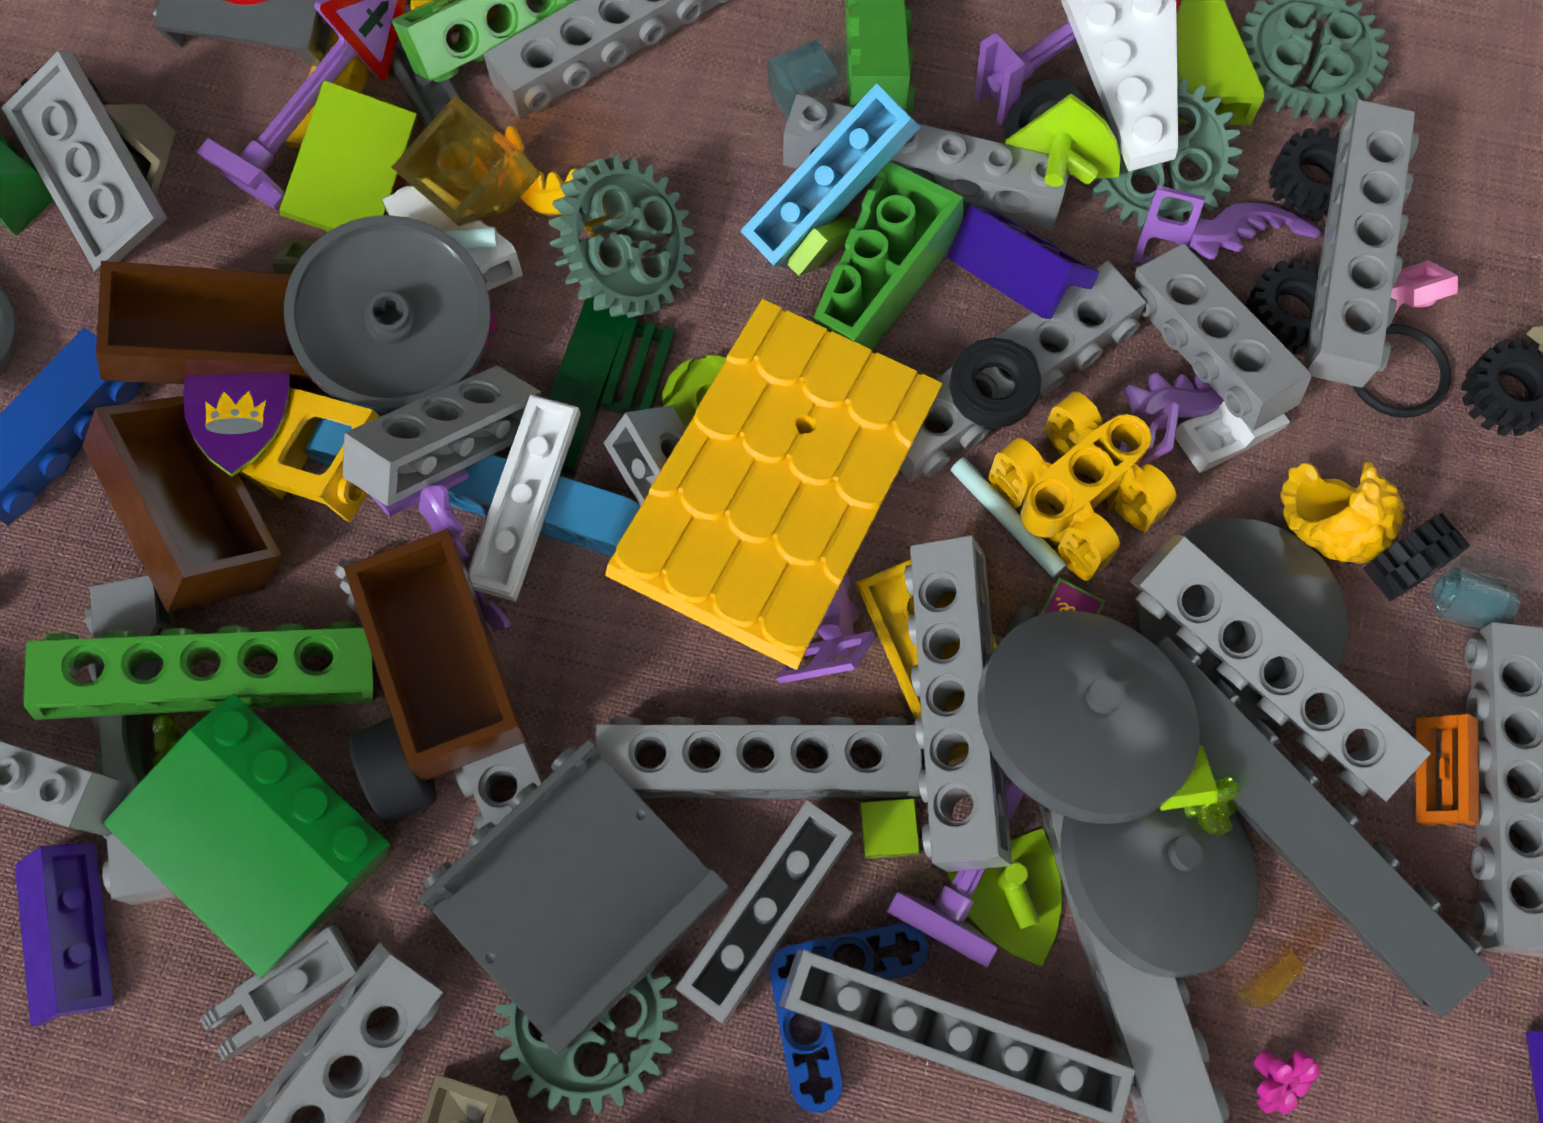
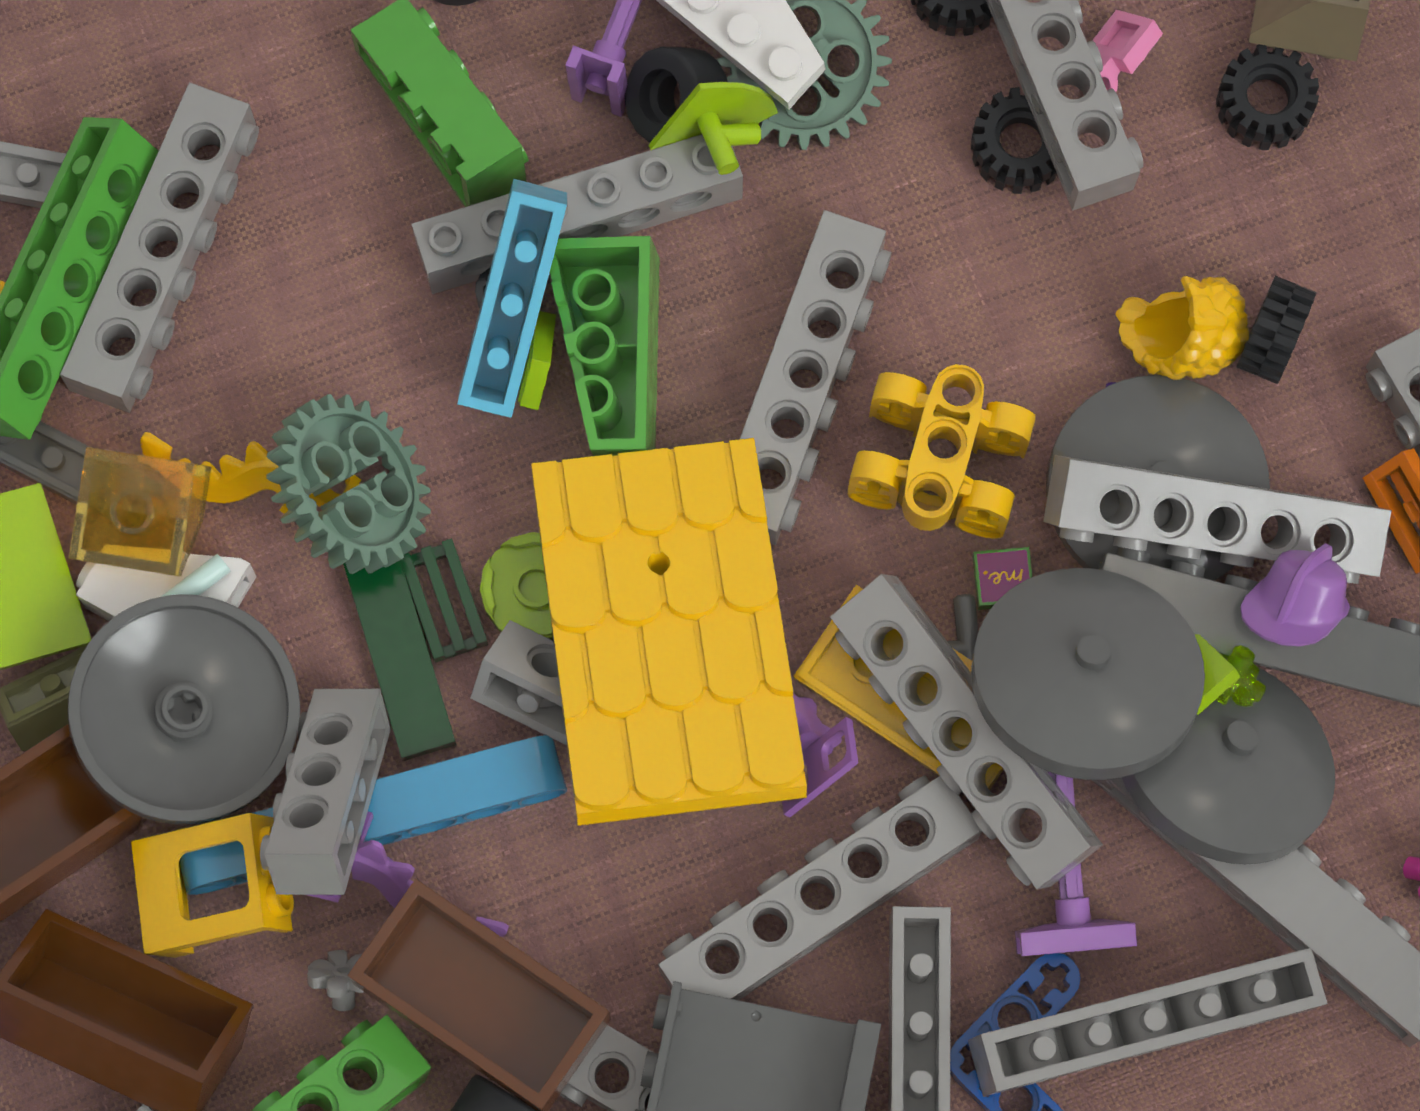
camera: 35 degrees left, 5 degrees up
(235, 415) = (106, 903): dark purple shield -> none
(523, 497) = (439, 798): white tile -> none
(798, 73) = (393, 195): clear light blue panel -> none
(889, 829) = (972, 882): lime tile -> none
(1000, 354) = (801, 372): black tyre -> none
(1008, 517) = (886, 521): light aqua bar -> none
(1017, 261) = (738, 262): dark purple panel -> none
(1020, 902) = (1130, 872): lime shield -> none
(1164, 404) = (965, 317): medium lavender piece -> none
(1220, 337) = (903, 181): light grey brick -> none
(1221, 436) = (1036, 300): white slope -> none
(1222, 231) = (909, 105): medium lavender piece -> none
(1271, 980) = (1376, 796): clear yellow tile -> none
(1308, 770) = (1298, 598): none -> medium lavender piece
(1445, 377) = (1203, 130): black tyre -> none
(1474, 599) = (1349, 334): clear light blue brick -> none

